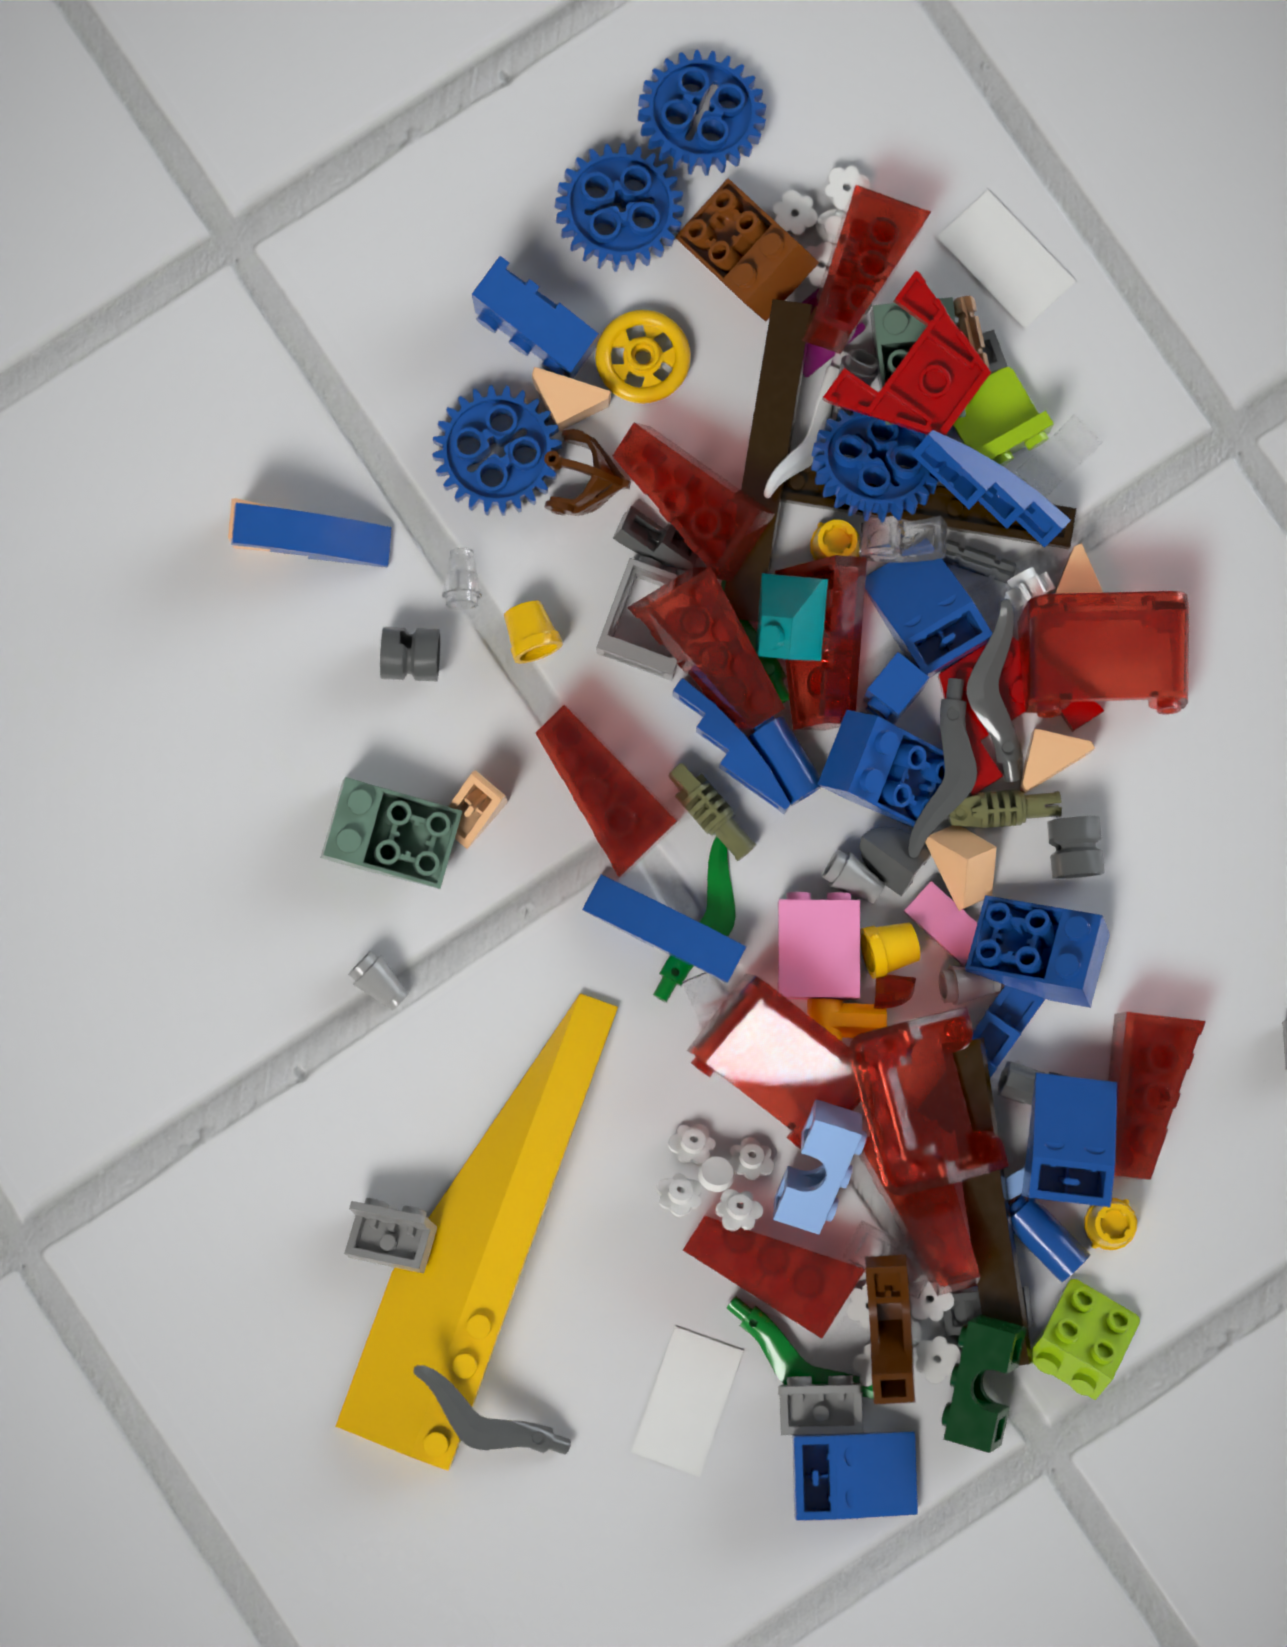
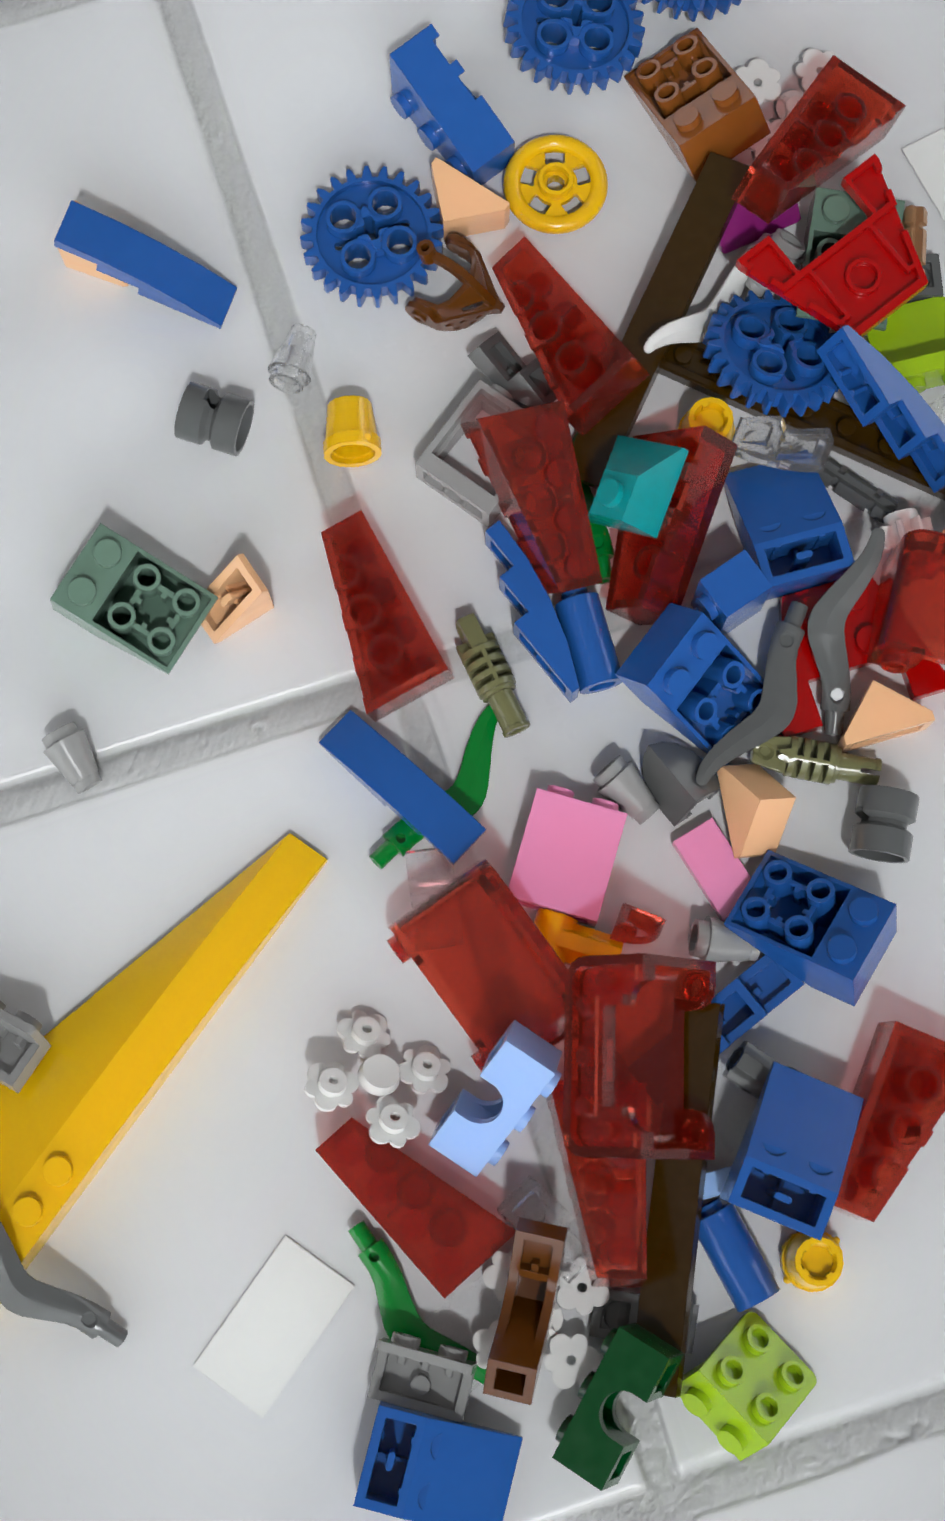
camera: 15 degrees right, 5 degrees down
(889, 948) = (645, 877): yellow piece -> none

